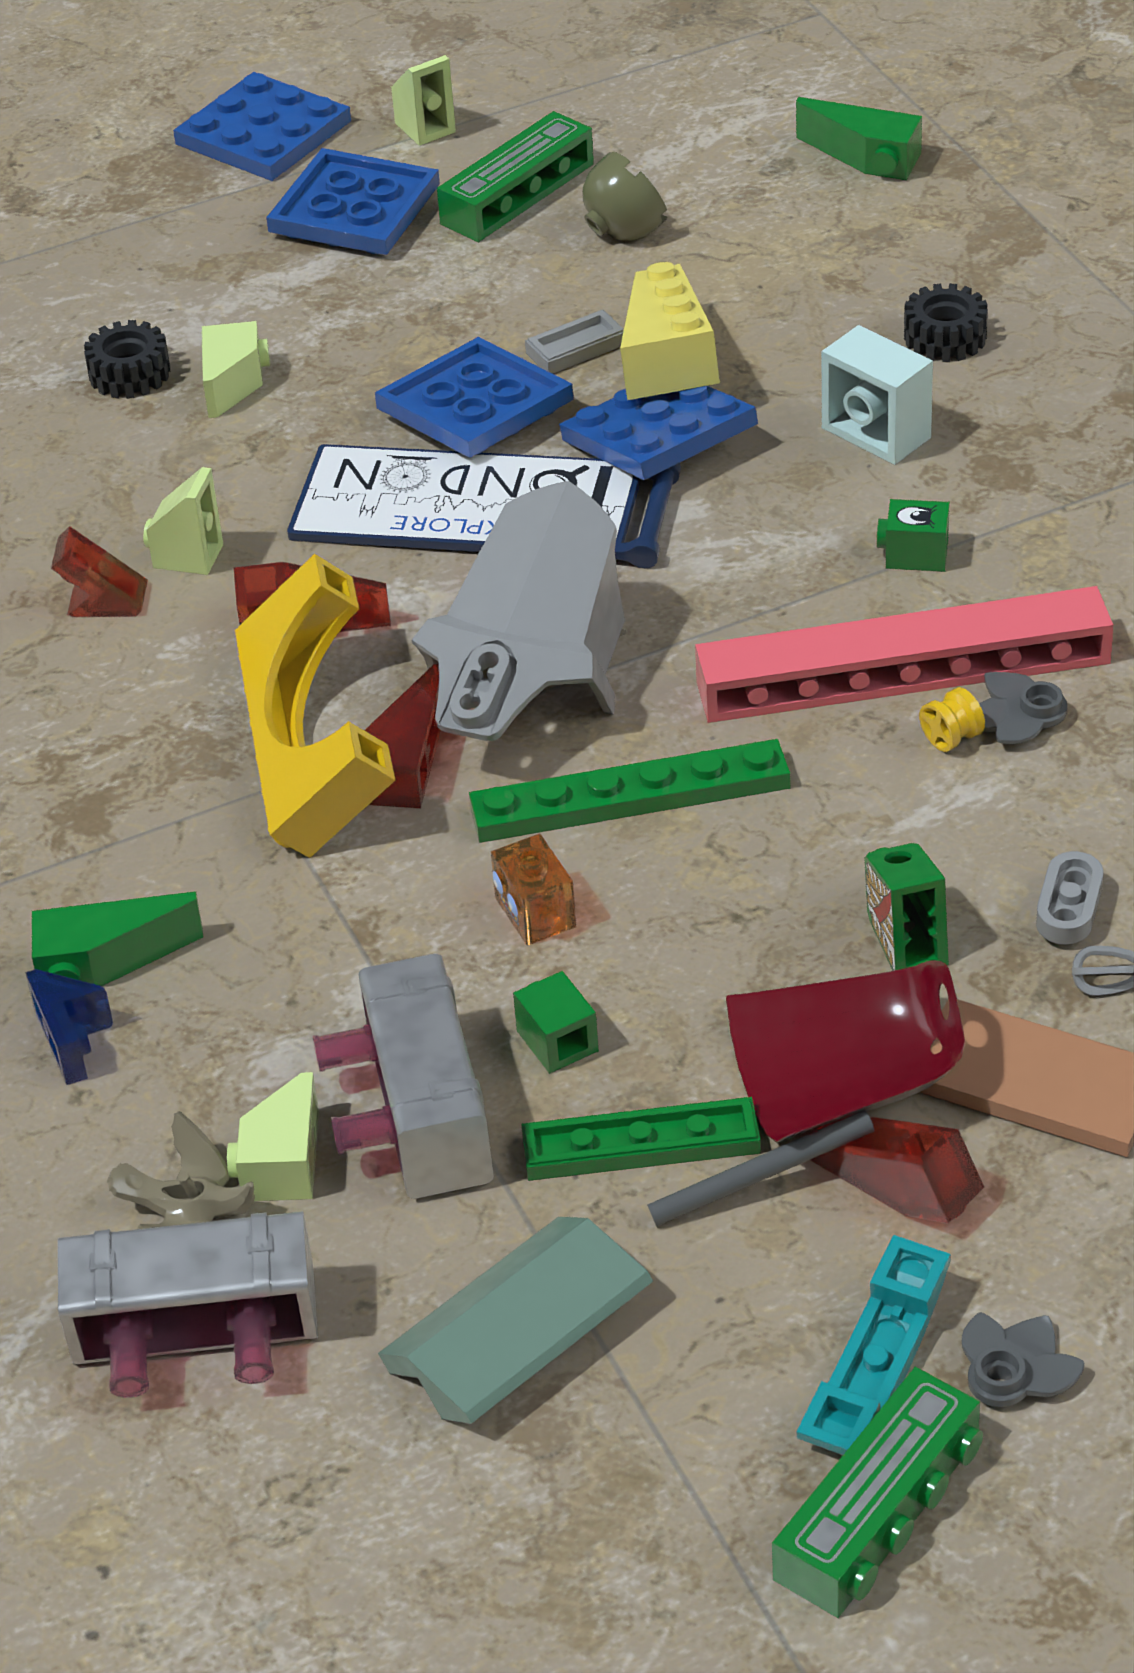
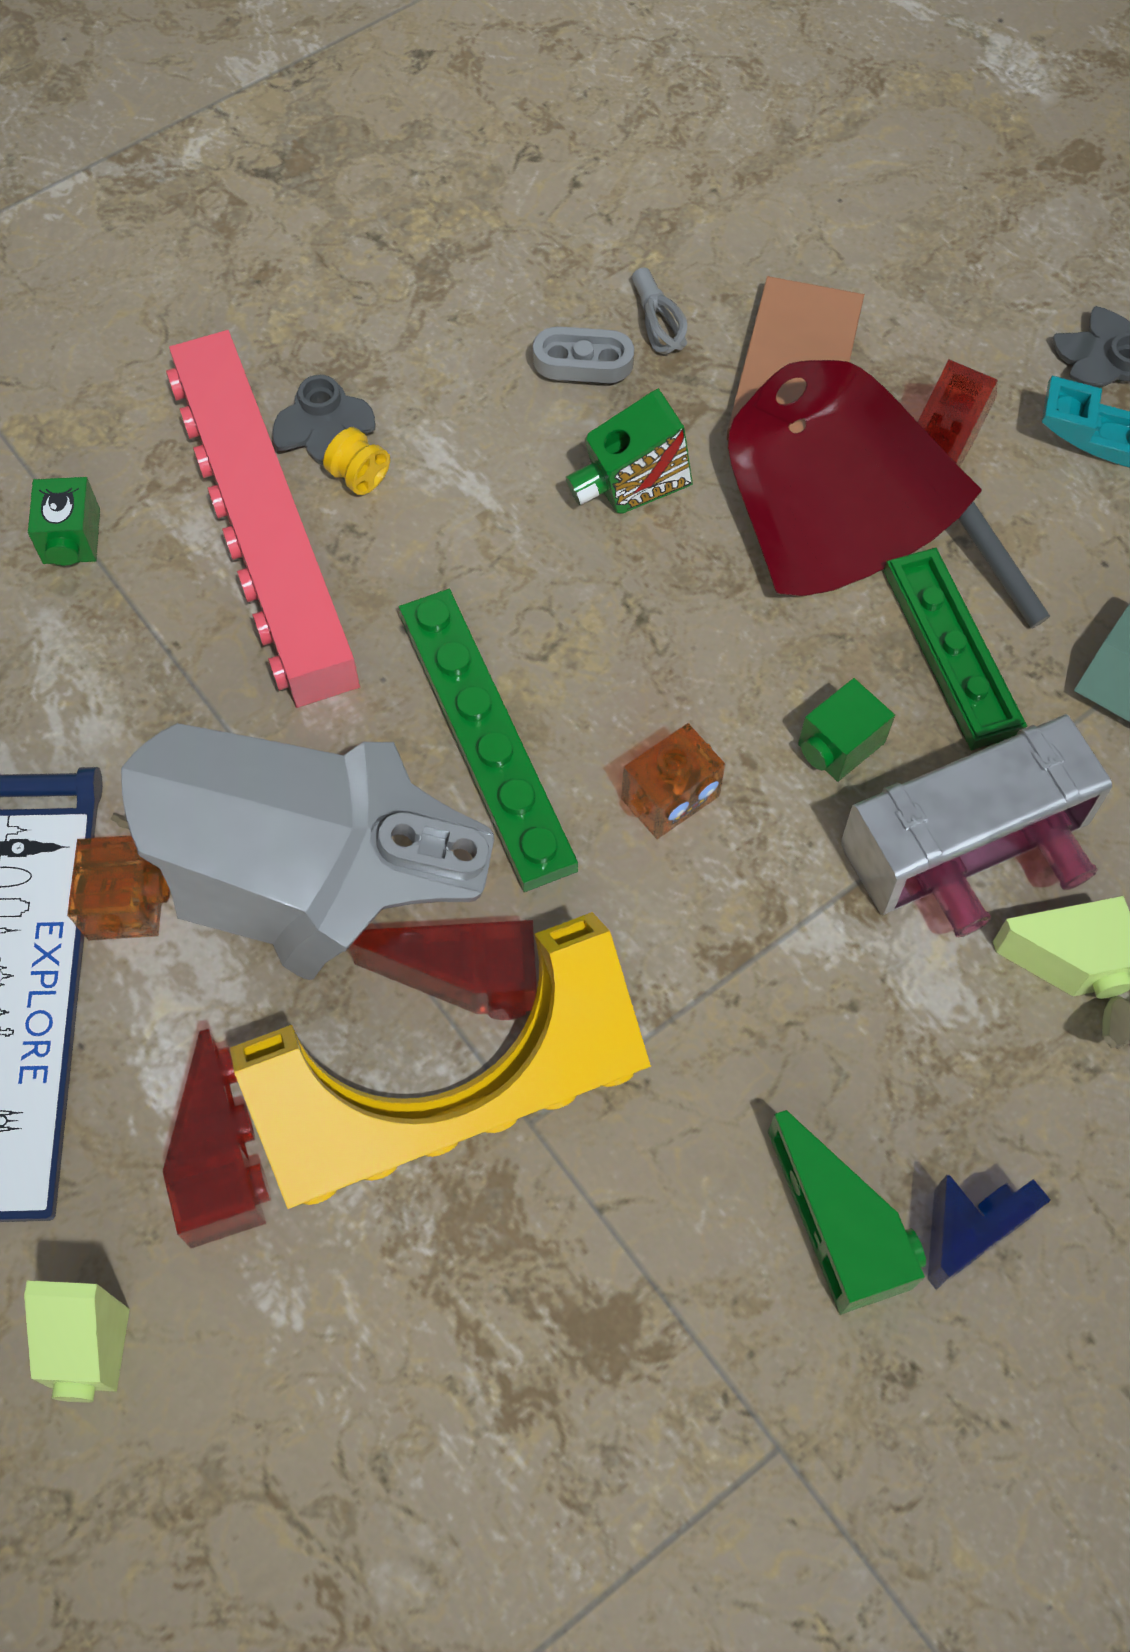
camera: 105 degrees left, 20 degrees up
(100, 580) = (182, 1439): clear red slope -> none

